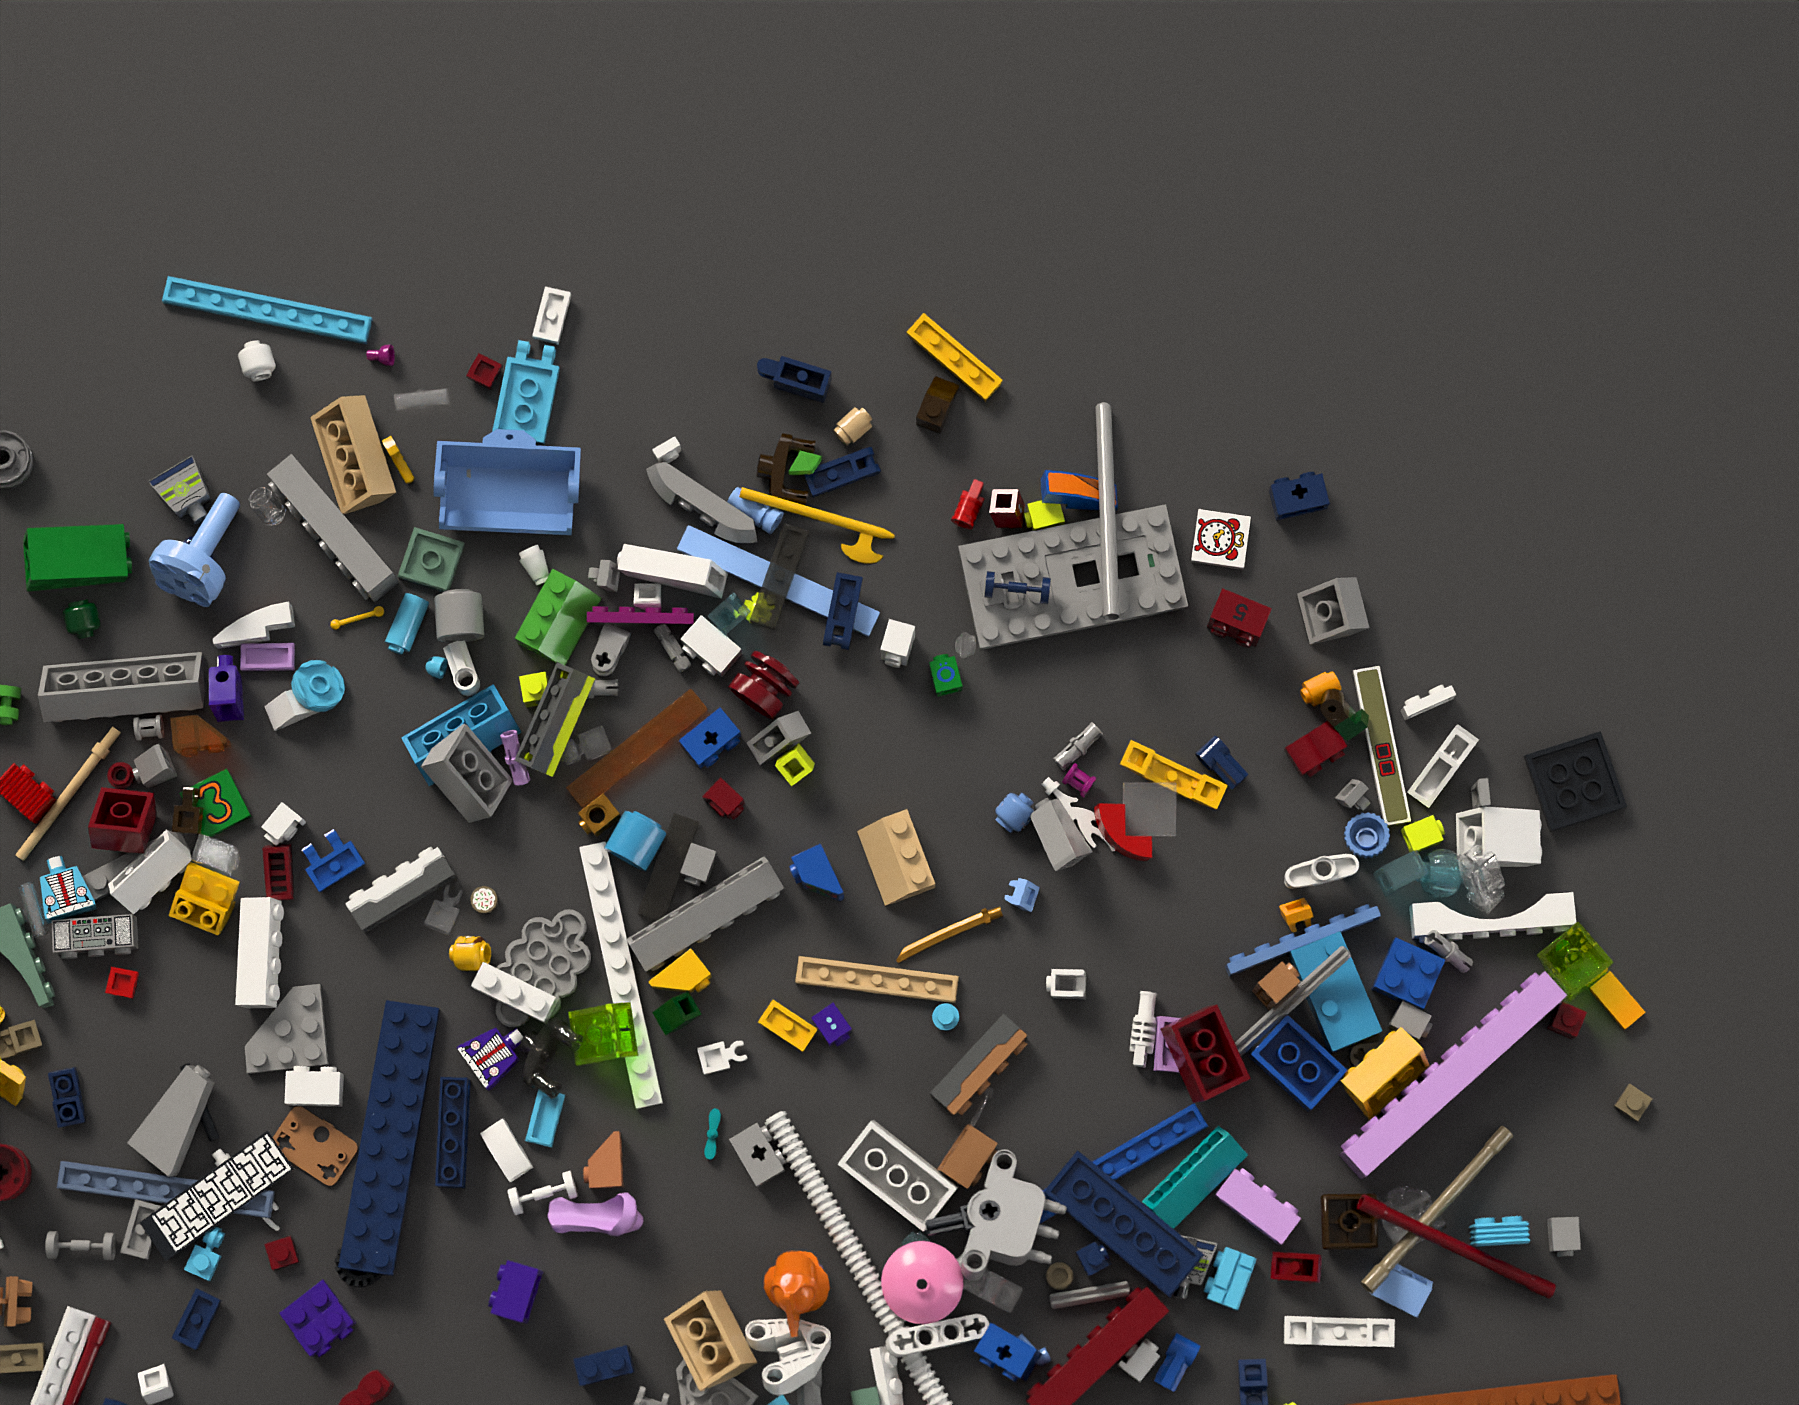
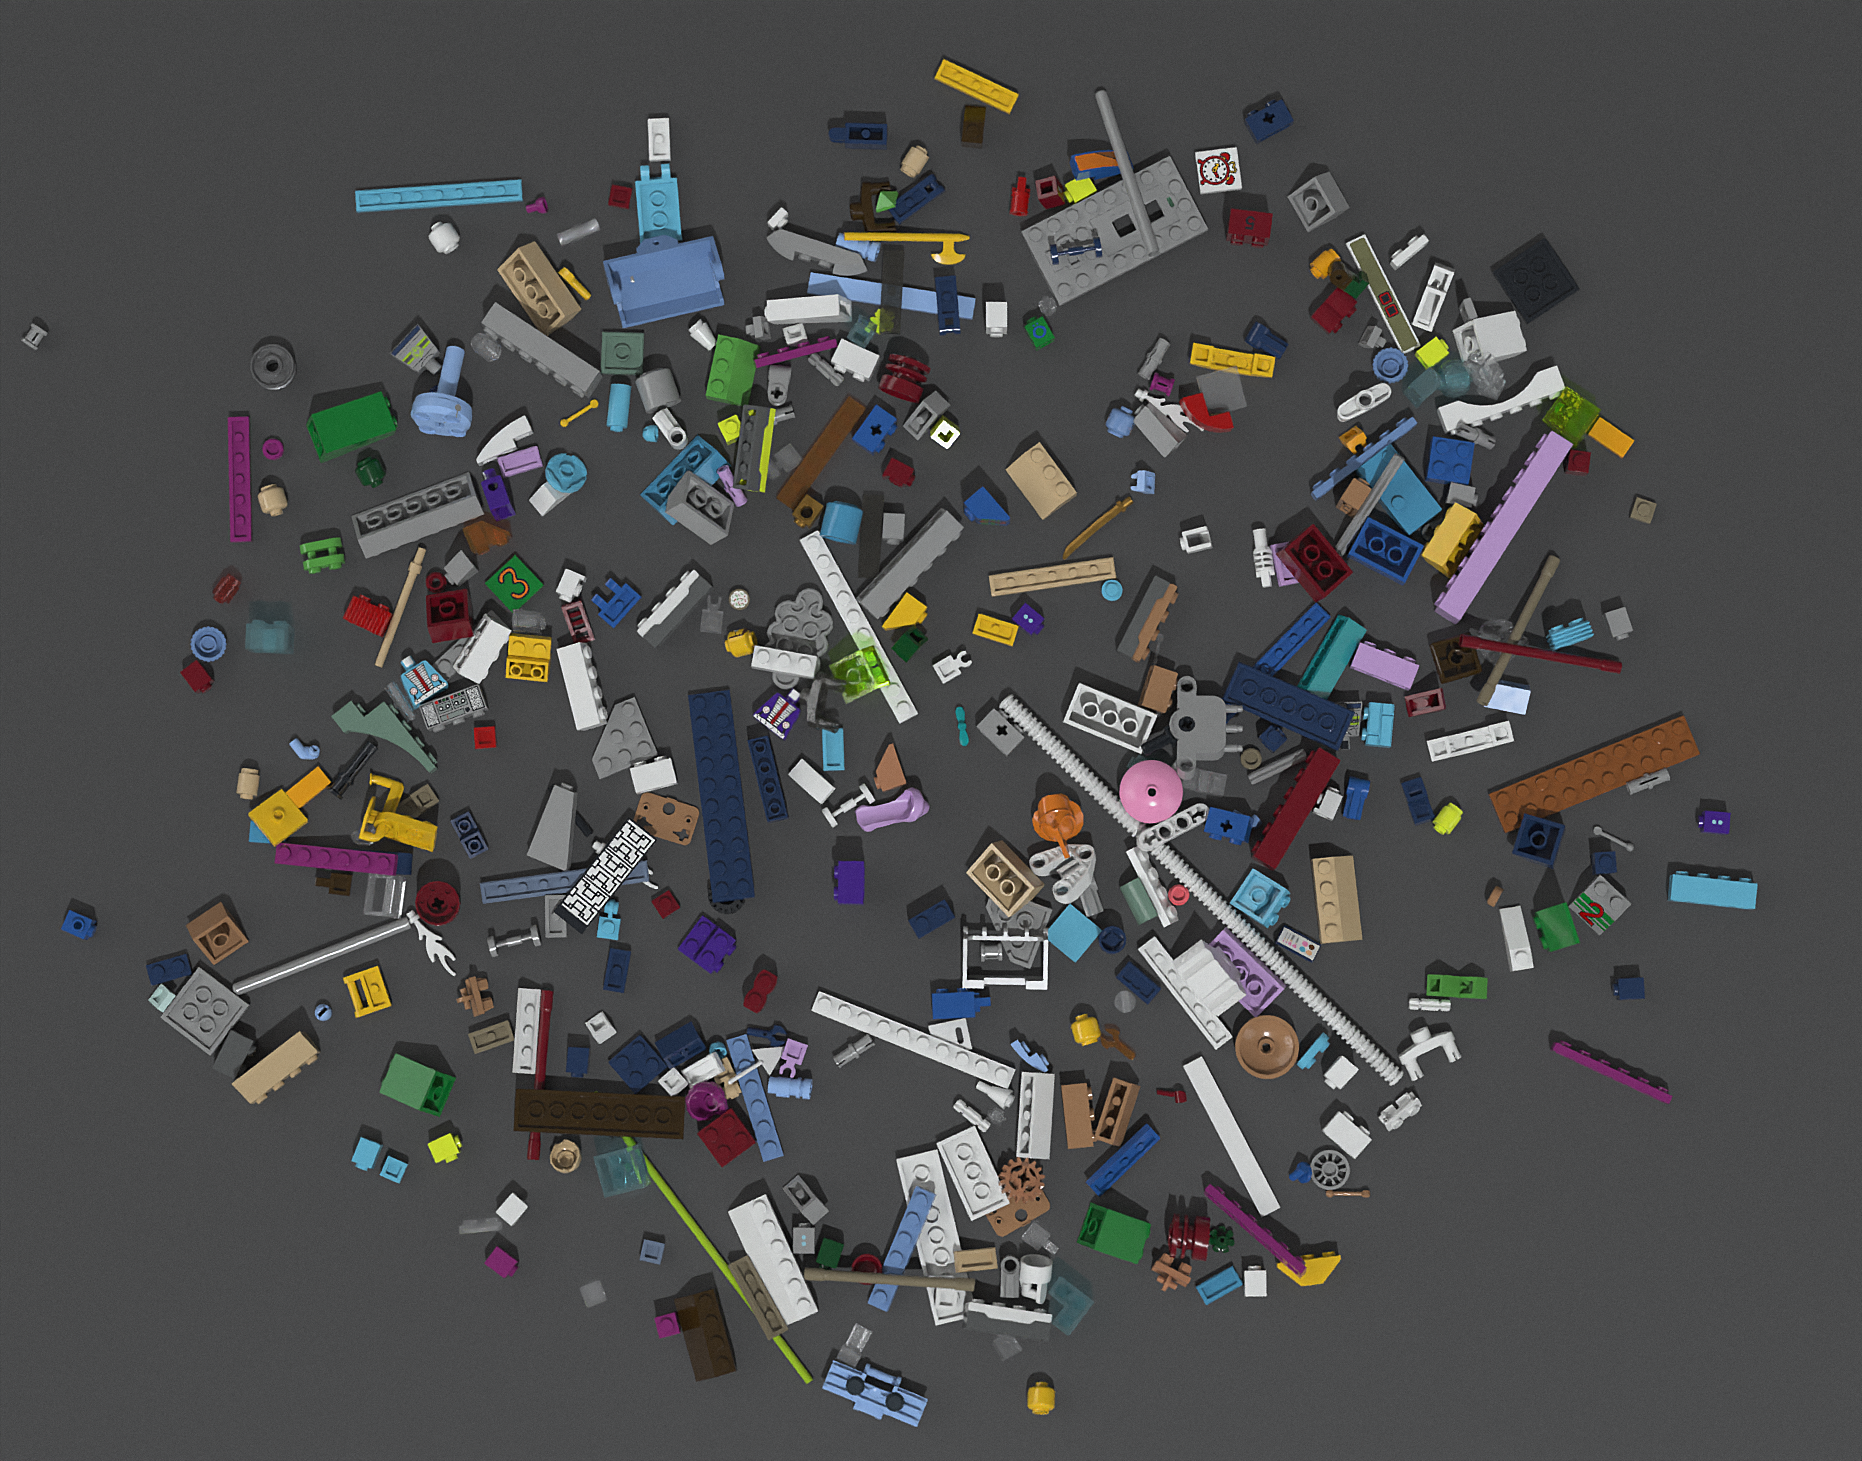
camera: 10 degrees left, 5 degrees up
(139, 725) = (449, 535): light grey bush -> none
(188, 816) = (497, 599): dark brown plate -> none

